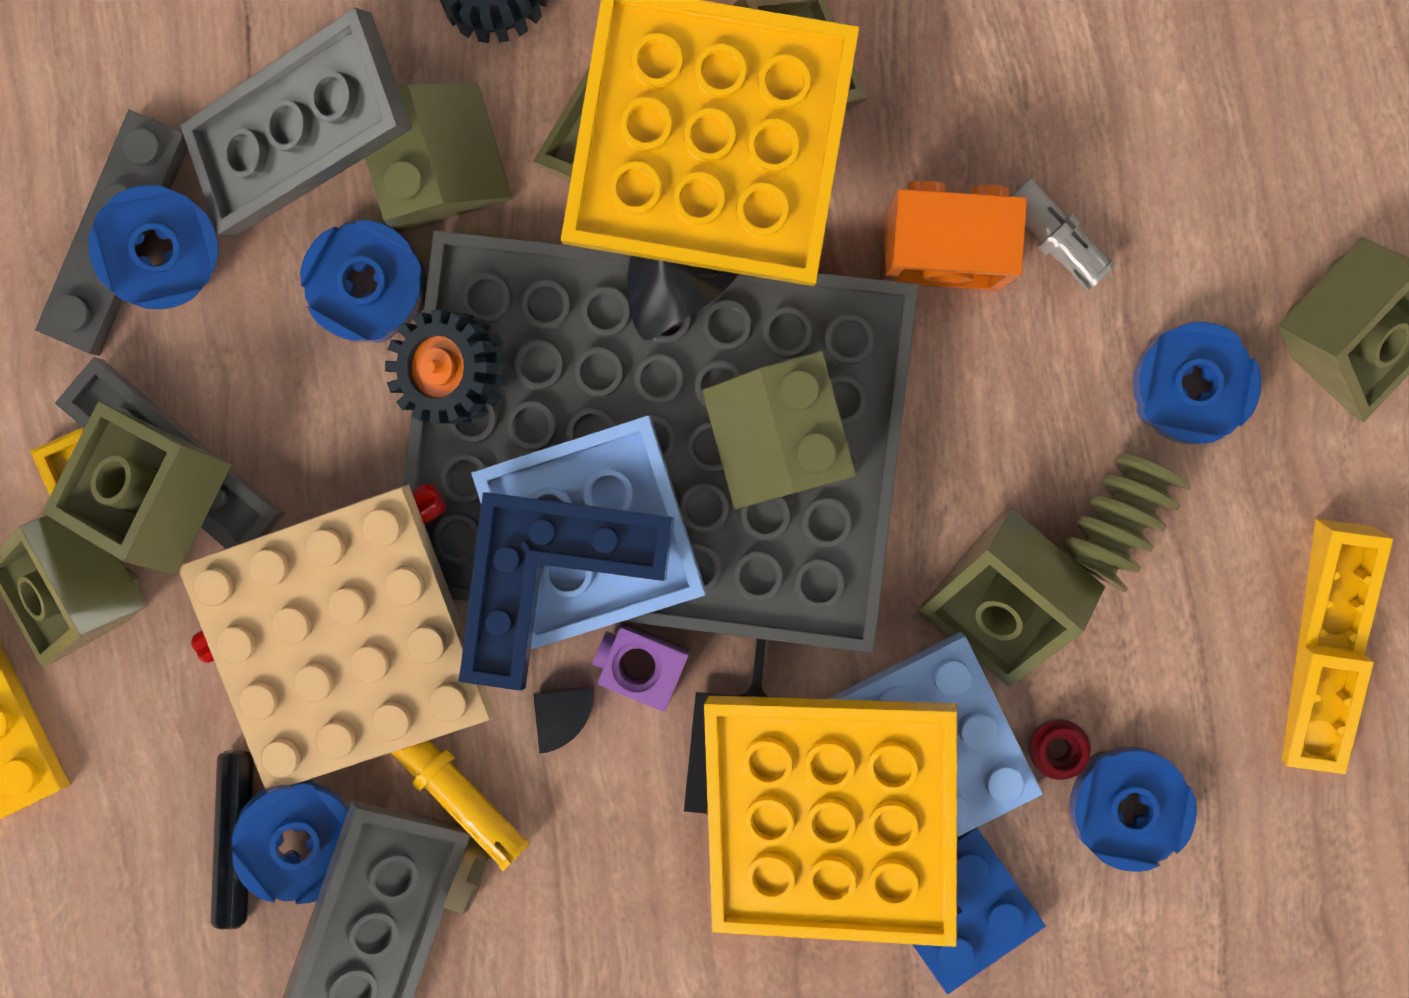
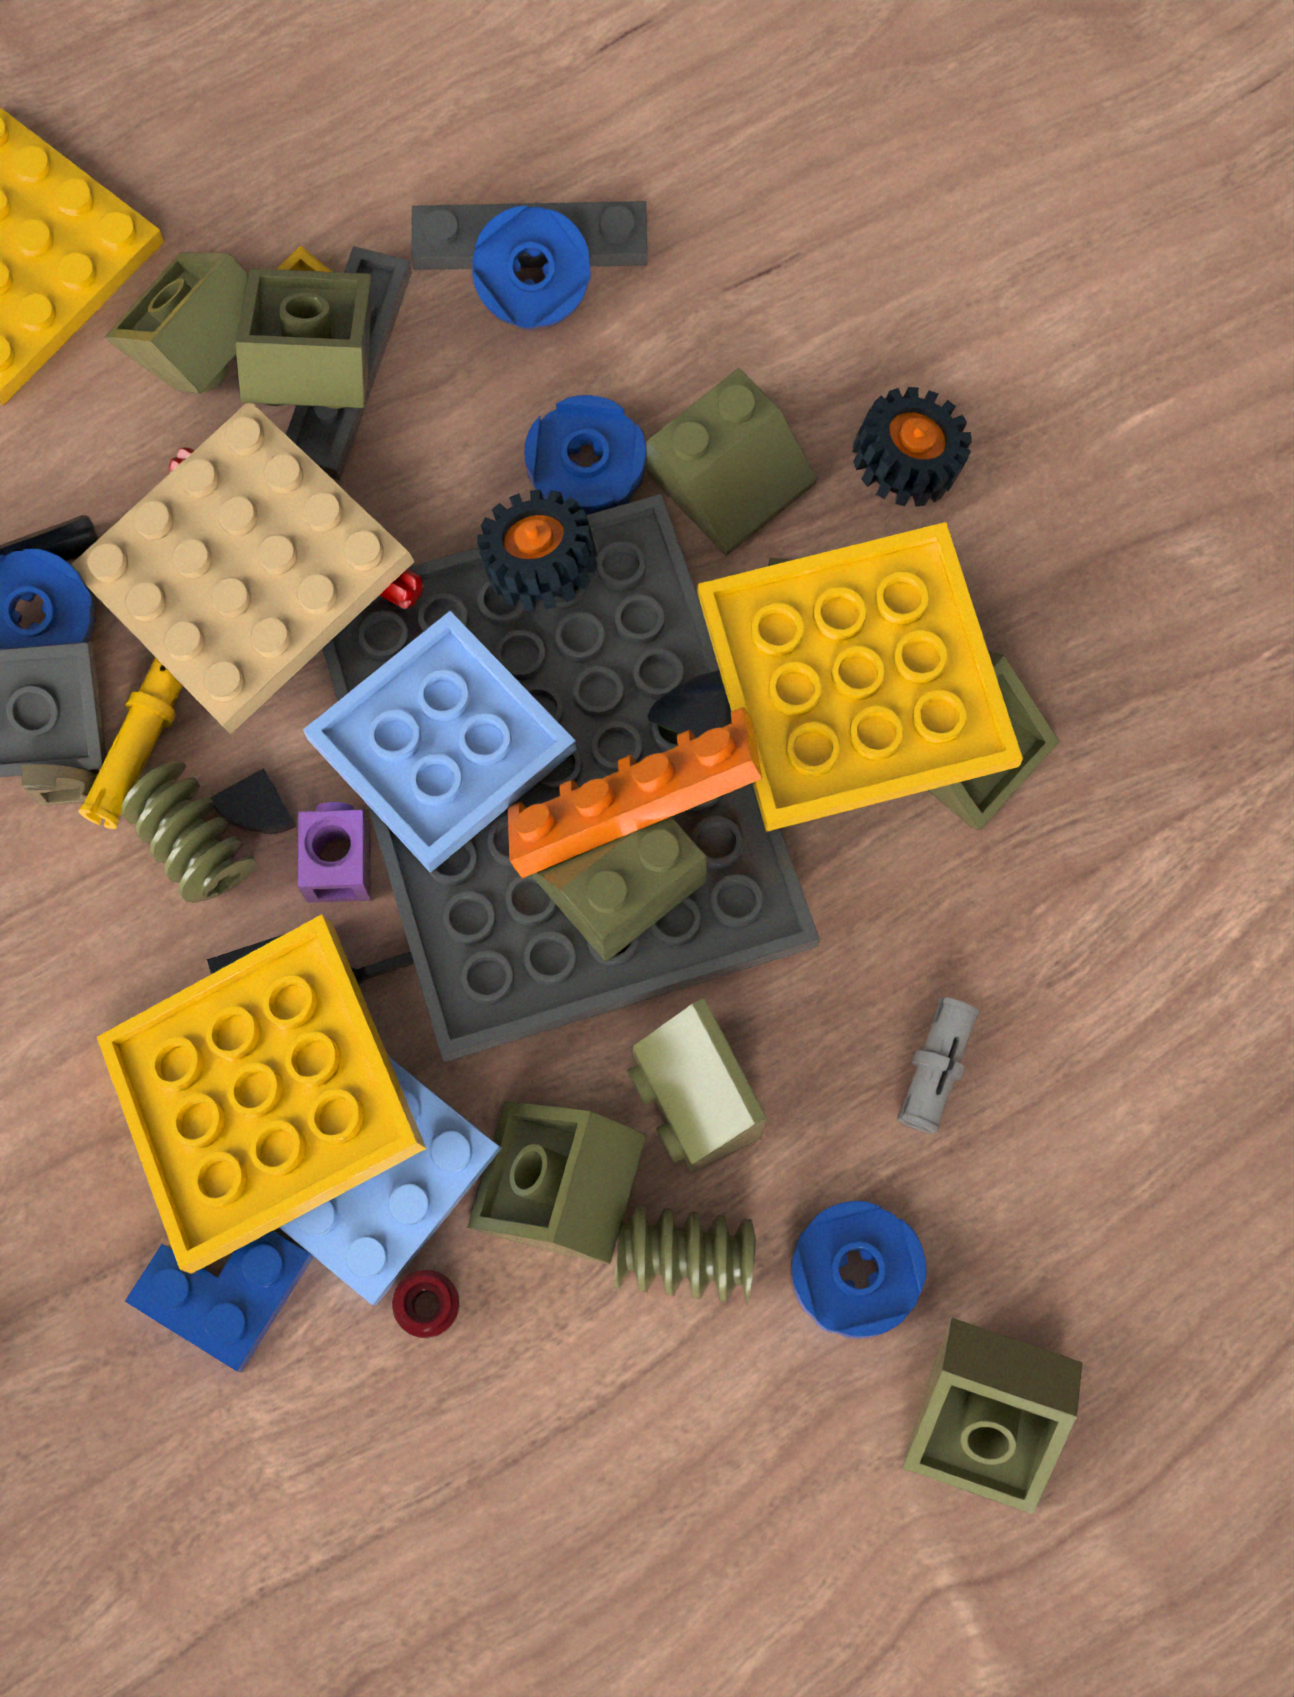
camera: 65 degrees right, 15 degrees down
(296, 124) = (696, 332): plate -> none
(513, 544) = (383, 670): dark blue plate -> none
(567, 787) = (181, 835): none -> olive piece
(735, 387) = (634, 795): none -> orange hinge
(954, 237) = (878, 950): orange brick -> none
(997, 448) = (696, 1089): none -> slope
(1151, 836) = (363, 1383): blue plate -> none
(1333, 636) = (655, 1545): yellow slope -> none

